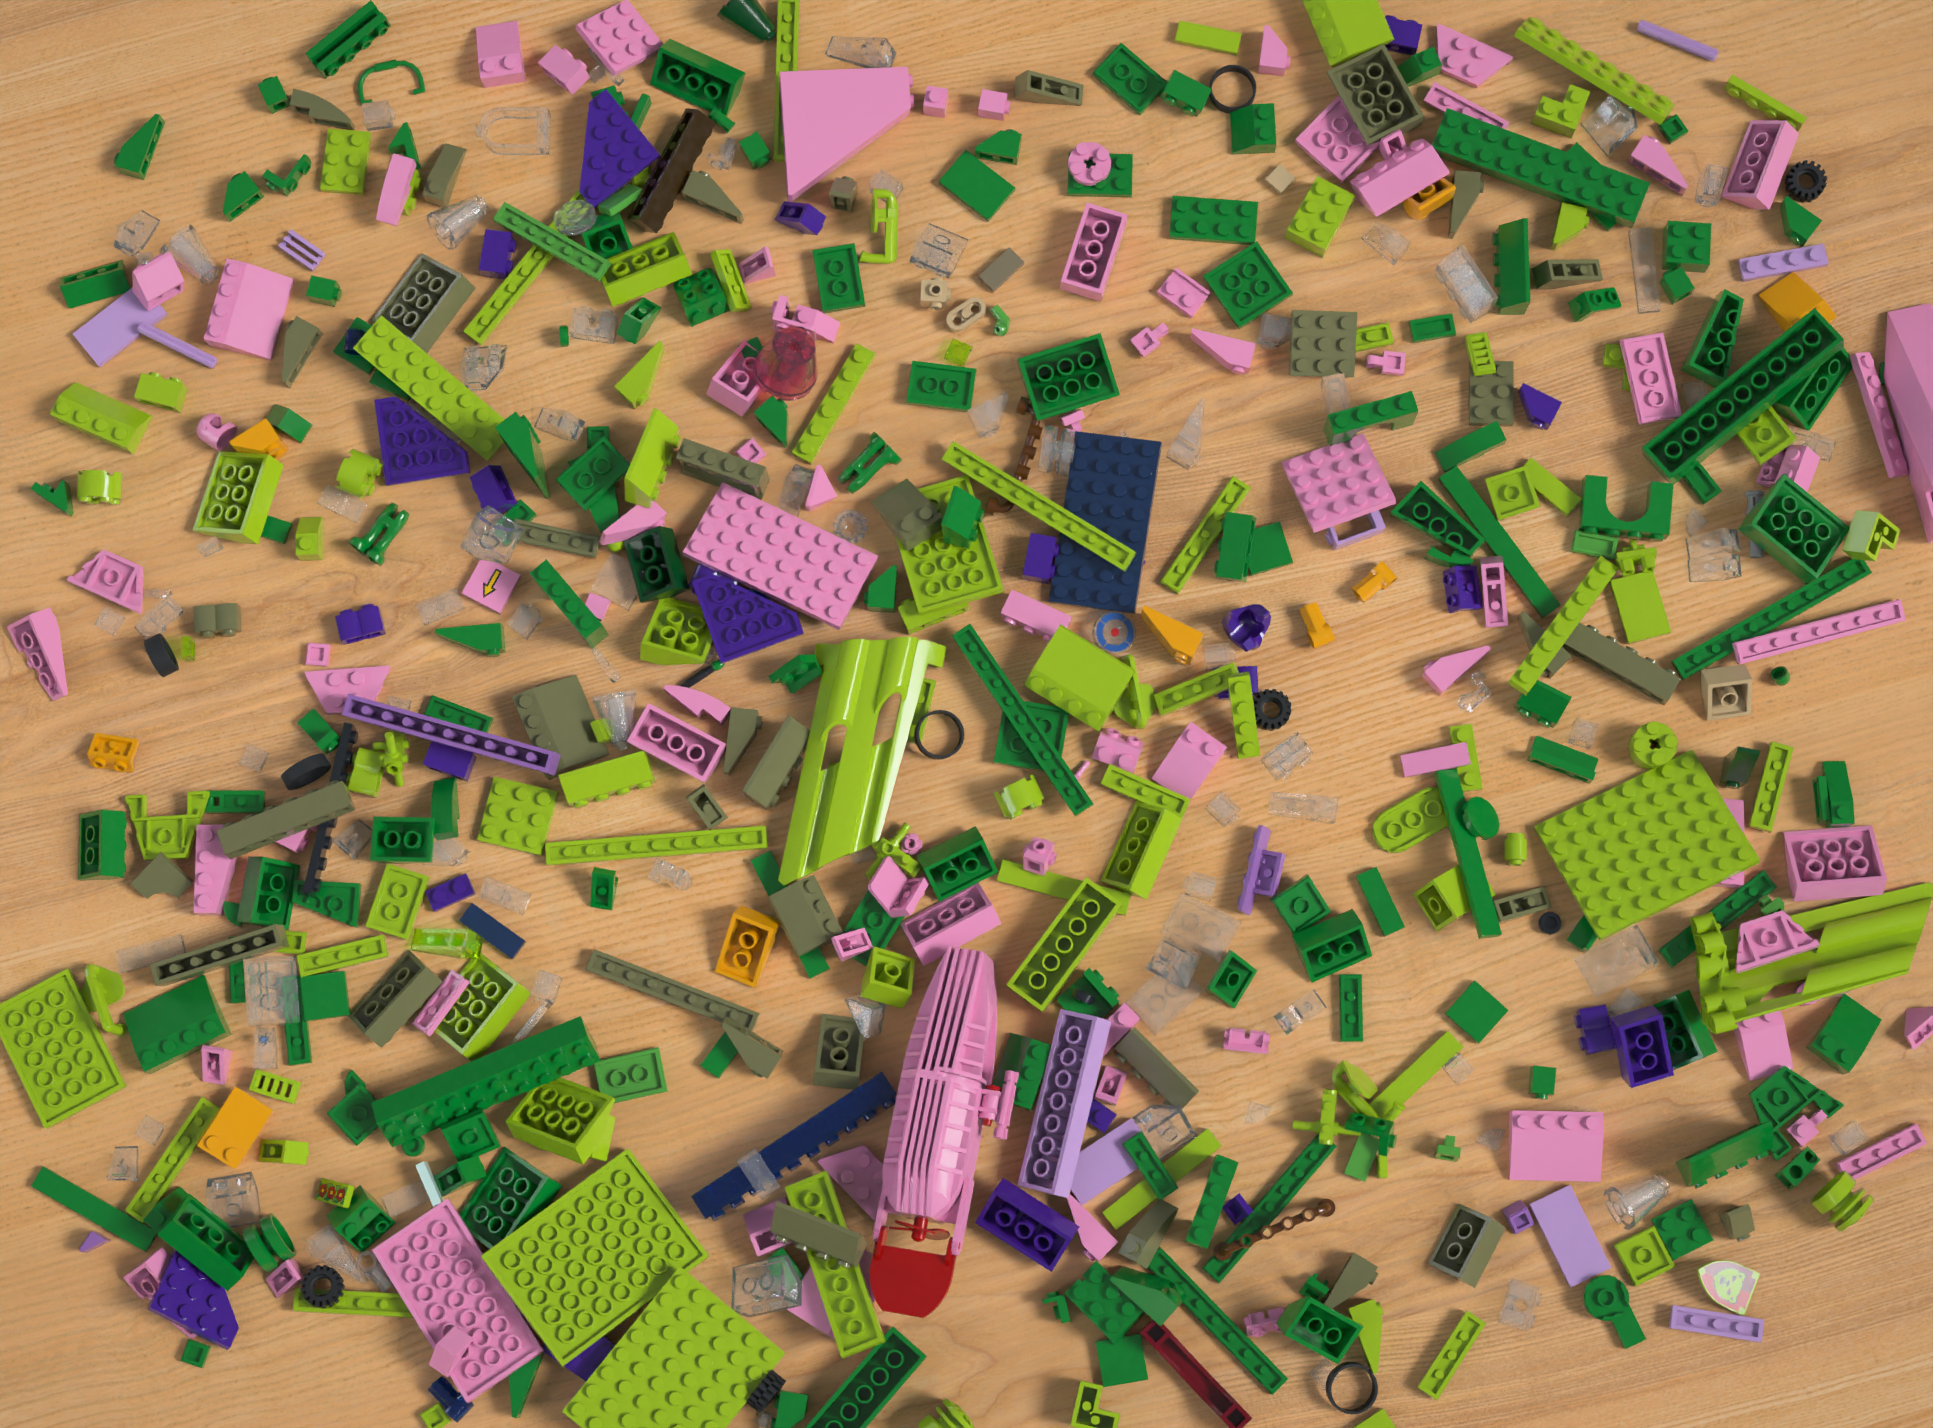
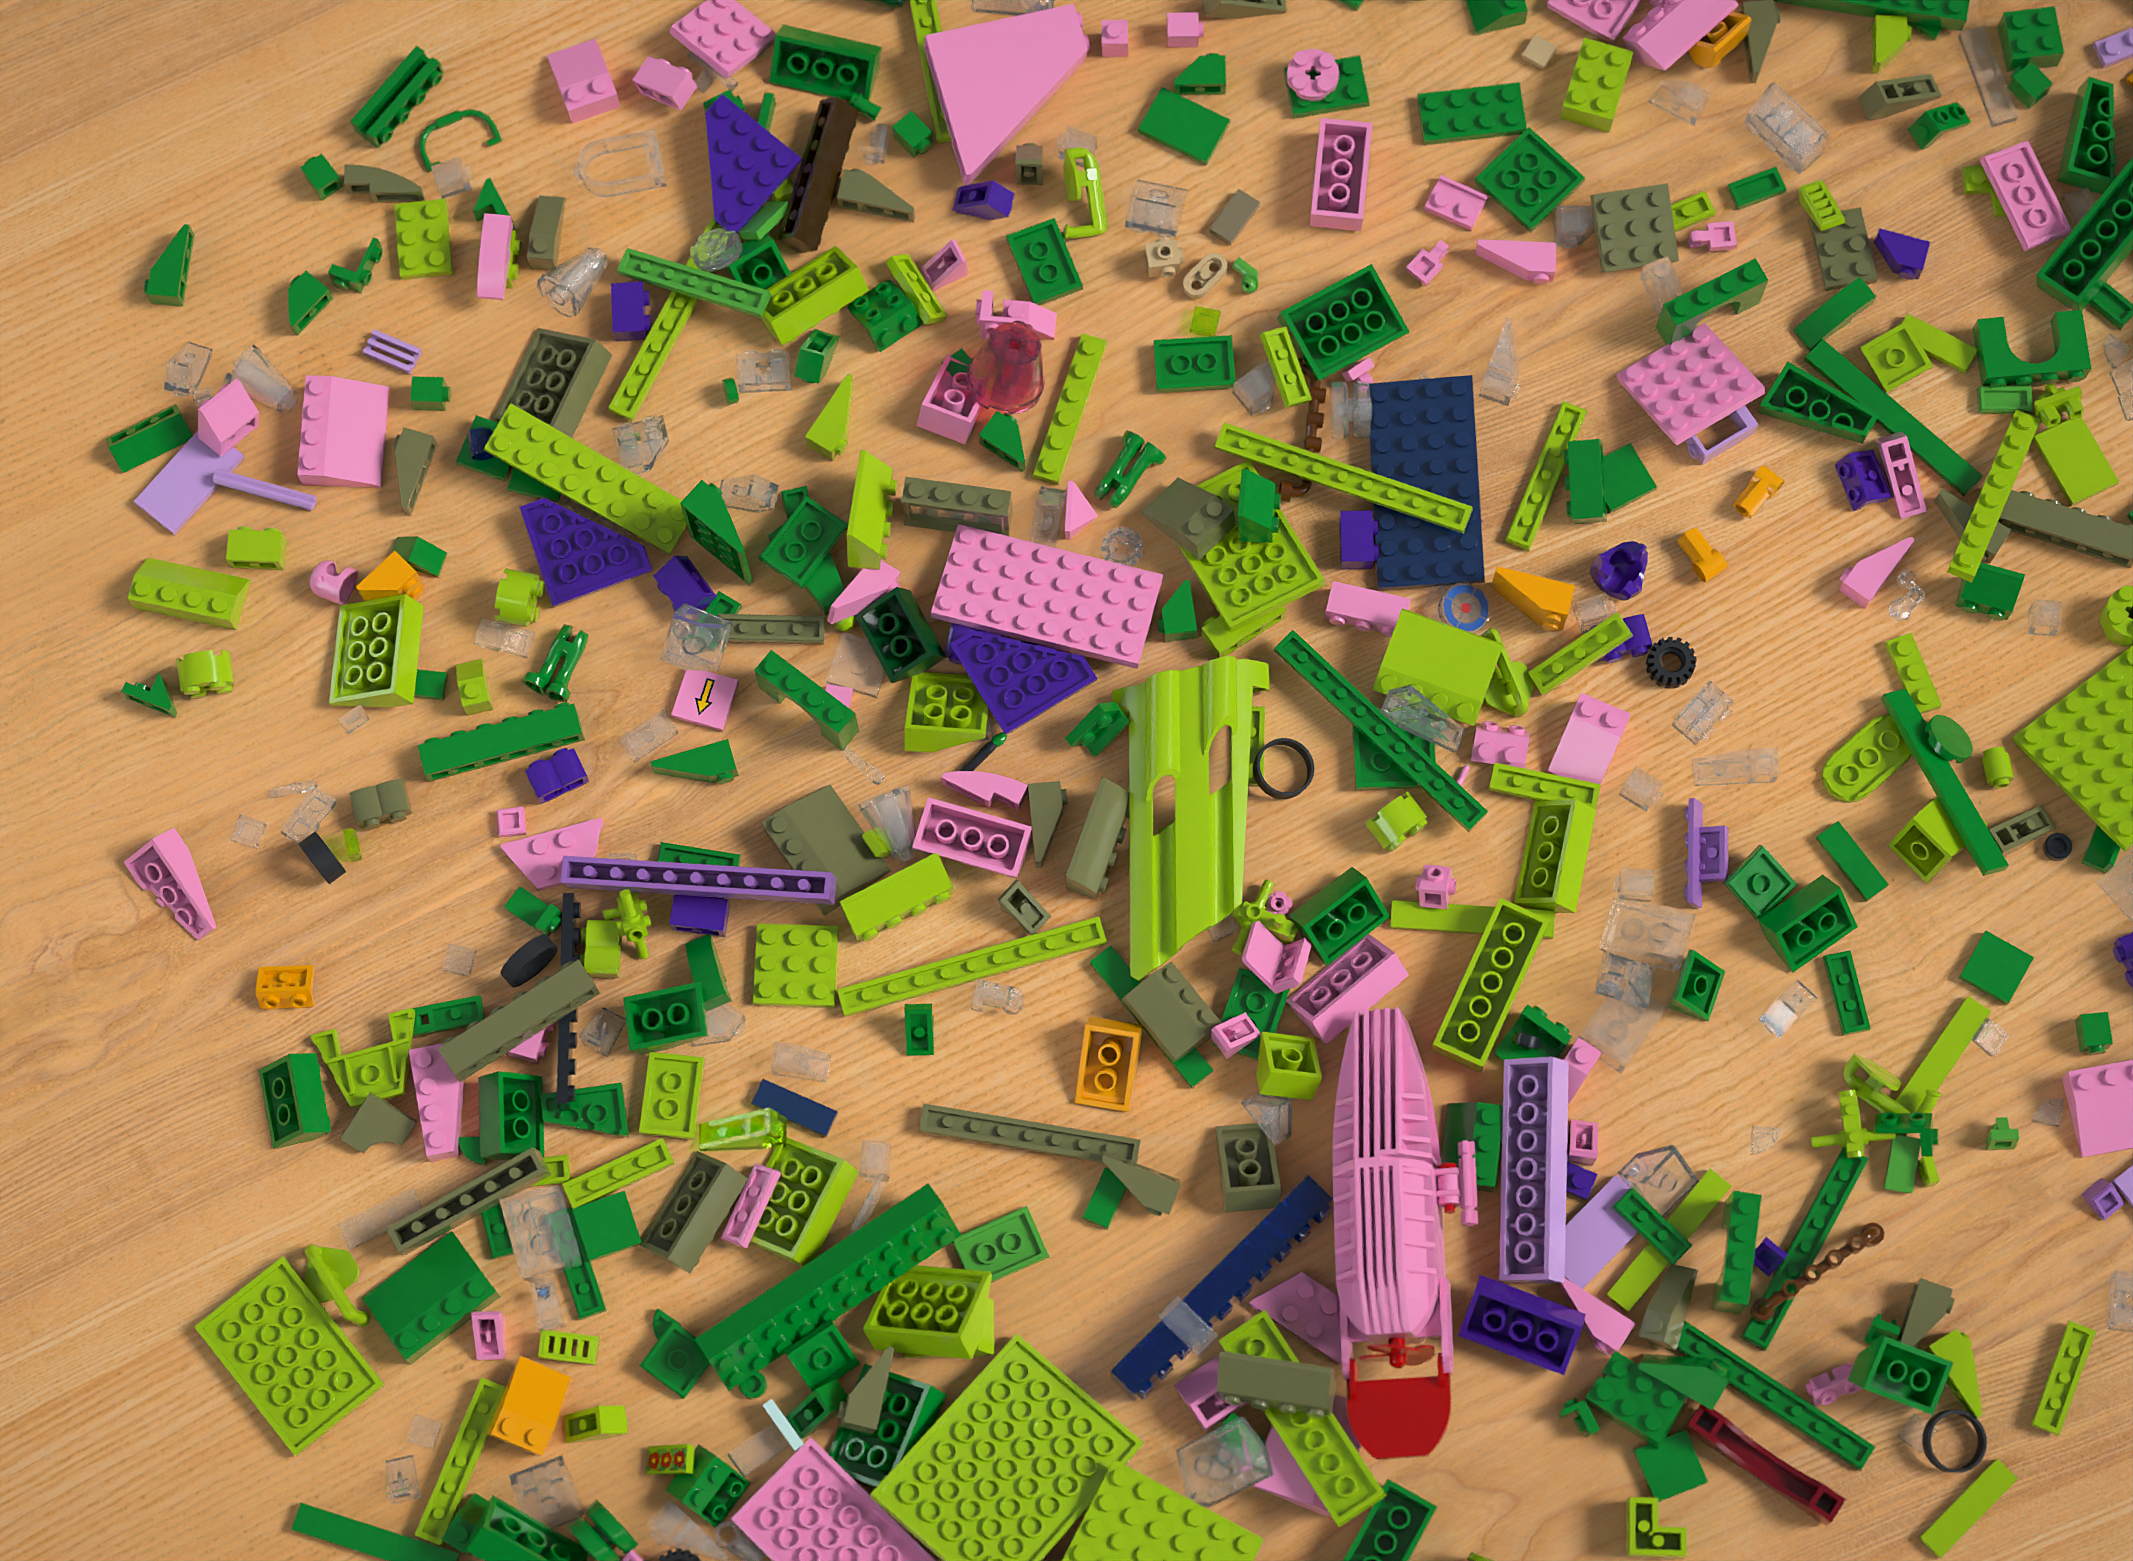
camera: 15 degrees left, 5 degrees down
(113, 579) = (243, 781): bright pink wing -> none
(322, 588) = (501, 741): none -> green brick
(450, 892) = (733, 1072): dark purple plate -> none
(495, 1178) = (864, 1403): none -> olive slope
(525, 620) = (755, 732): clear brick -> none
(751, 451) = (985, 479): bright pink tile -> none
(1012, 404) = (1285, 367): none -> lime tile
(1057, 716) = (1421, 717): none -> clear slope
(1155, 1069) = (1632, 1109): olive slope -> none
(1237, 1040) = (1744, 1055): bright pink hinge -> none
(1243, 715) = (1642, 673): lime plate -> none
(1435, 759) = (1879, 681): bright pink tile -> none
(1442, 559) = (1831, 449): green slope -> none
(1466, 1245) = (2051, 1243): olive slope -> none
(1512, 267) = (1836, 99): green slope -> none
(1563, 759) = (2028, 654): green panel -> none

